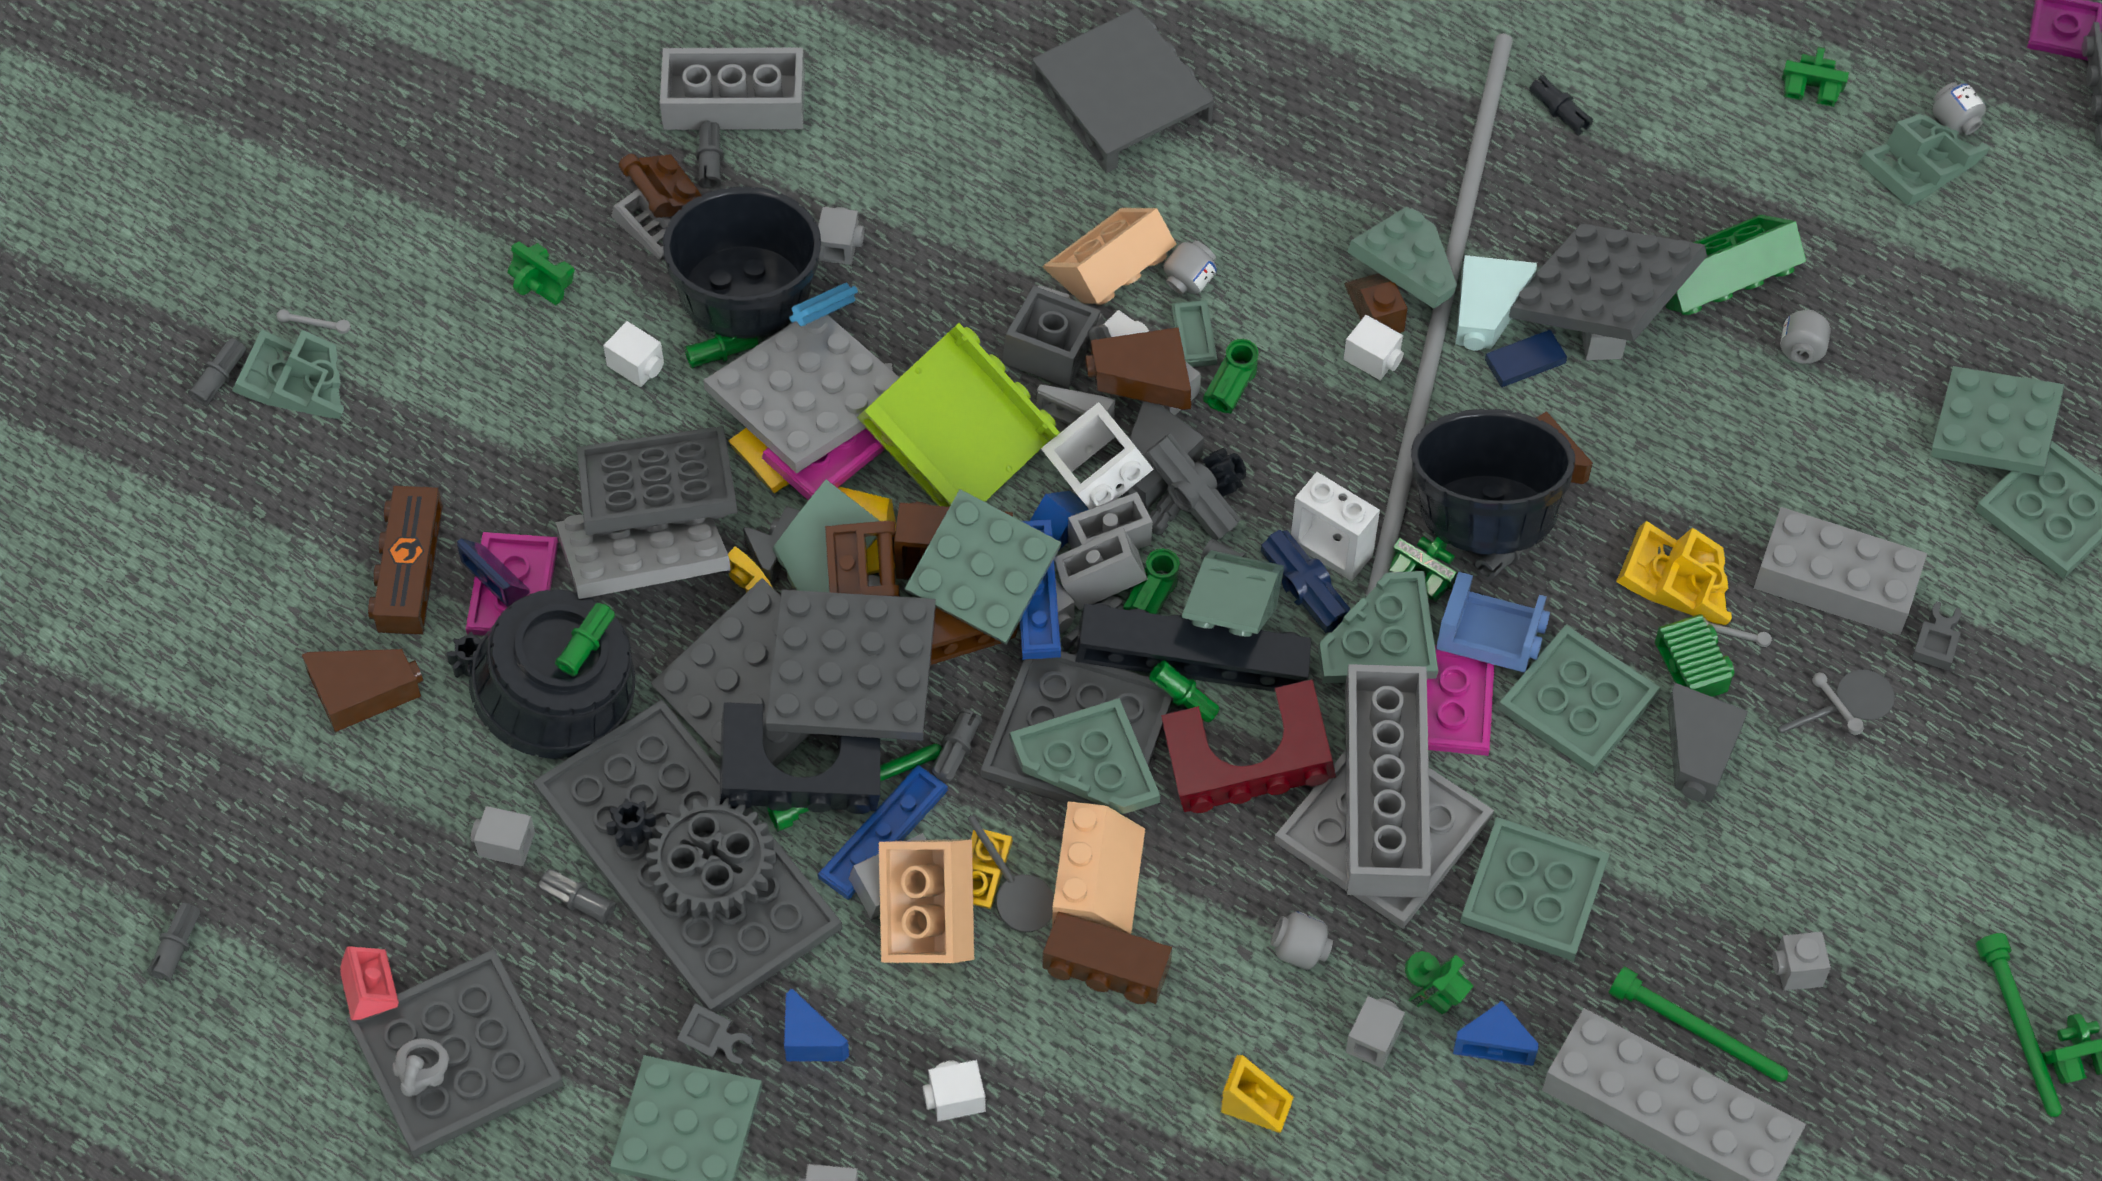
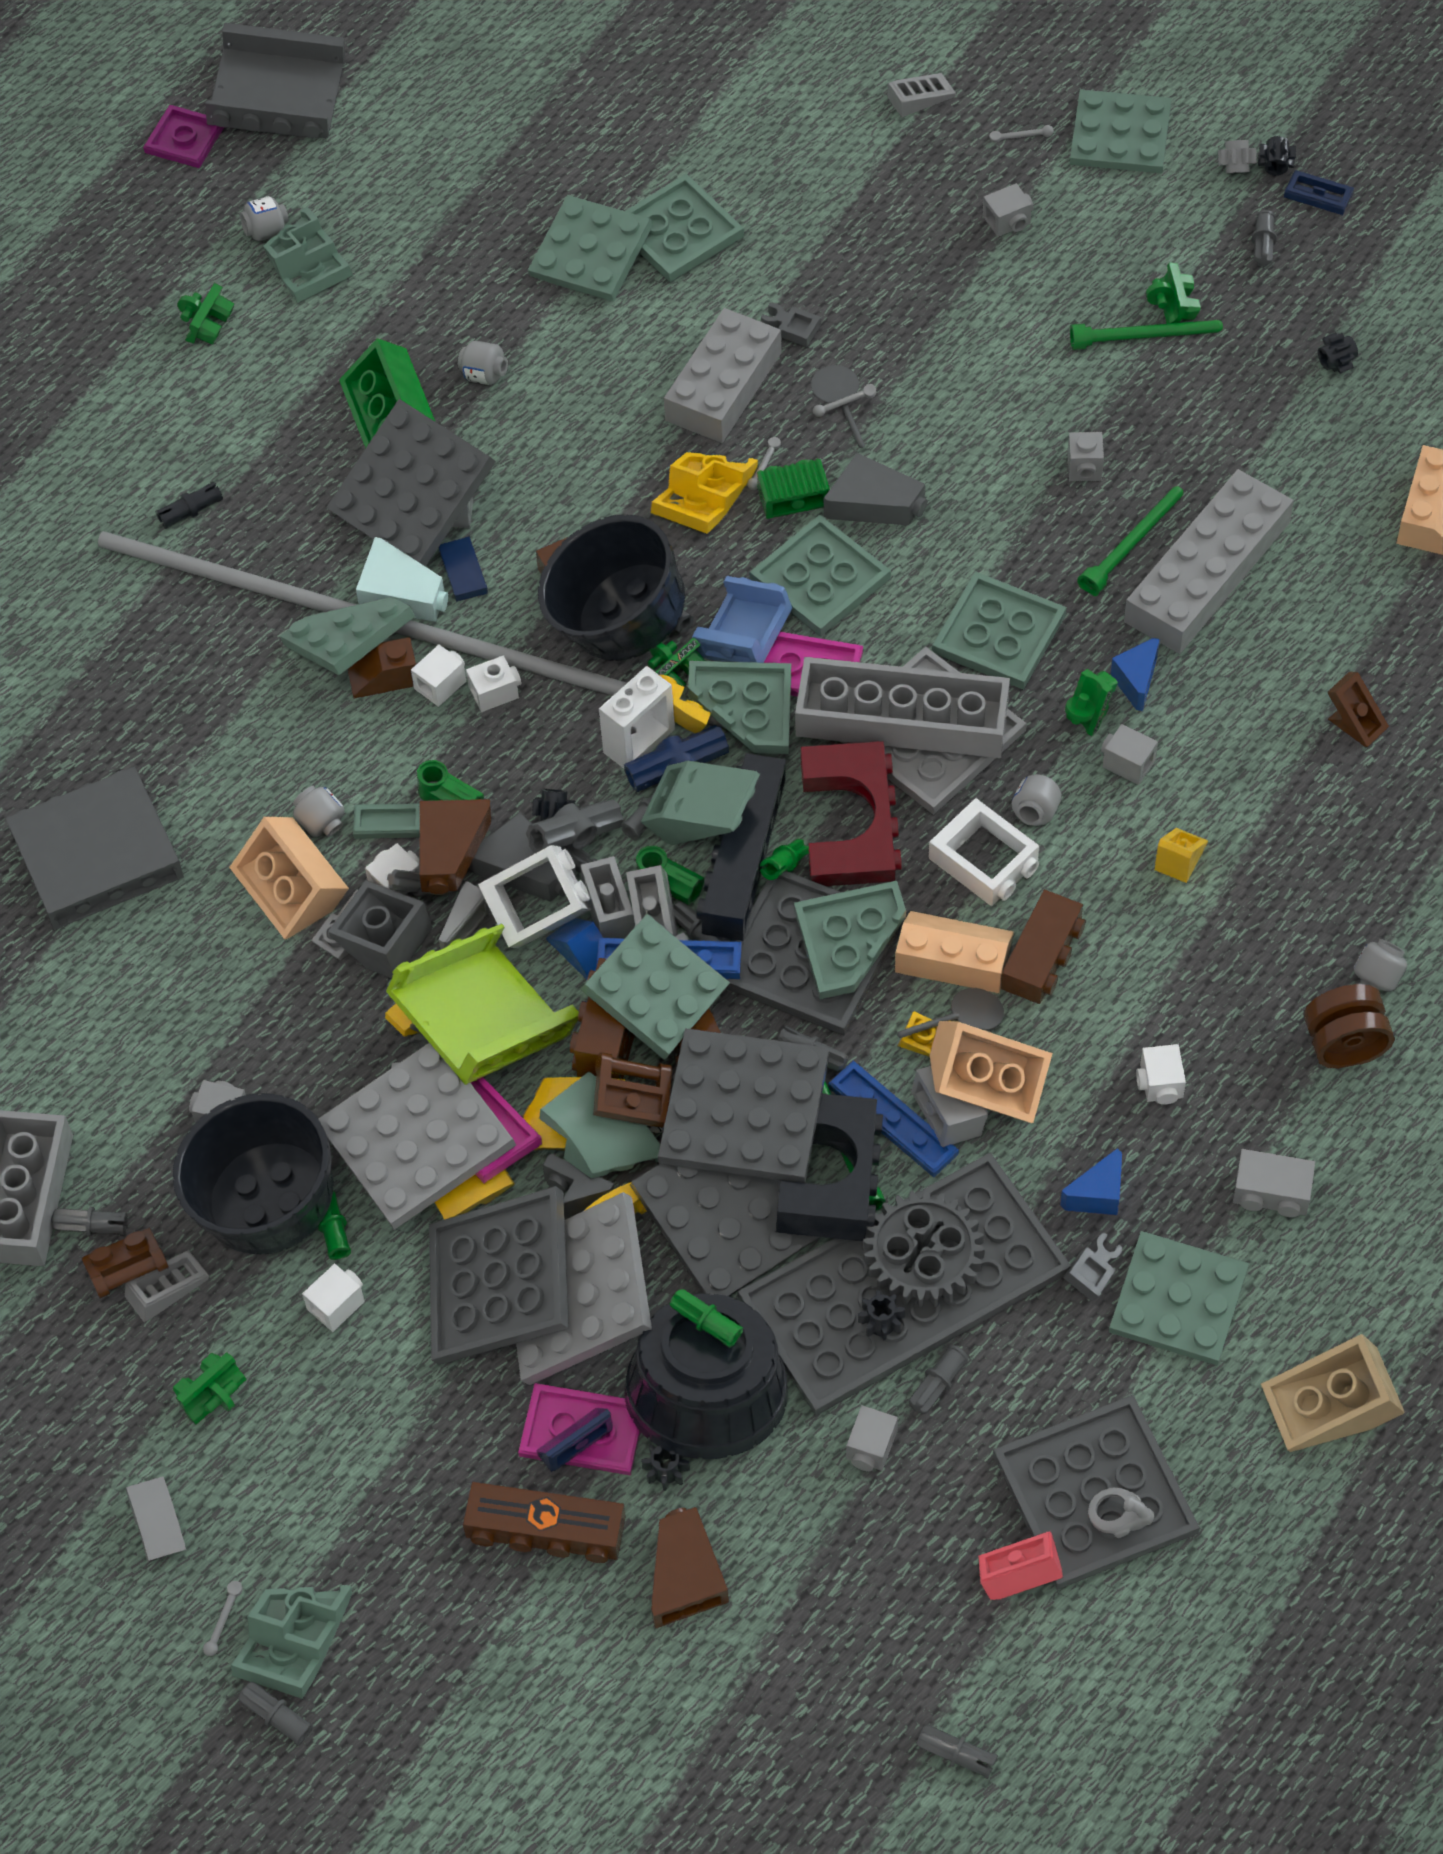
camera: 80 degrees left, 0 degrees up
(406, 248) = (155, 1518): none -> light grey slope
(823, 304) = (335, 1108): dark azure axle -> none
(1245, 862) = (960, 829): none -> white window
(1371, 557) = (687, 713): none -> yellow slope
(1374, 399) = (493, 683): none -> white brick

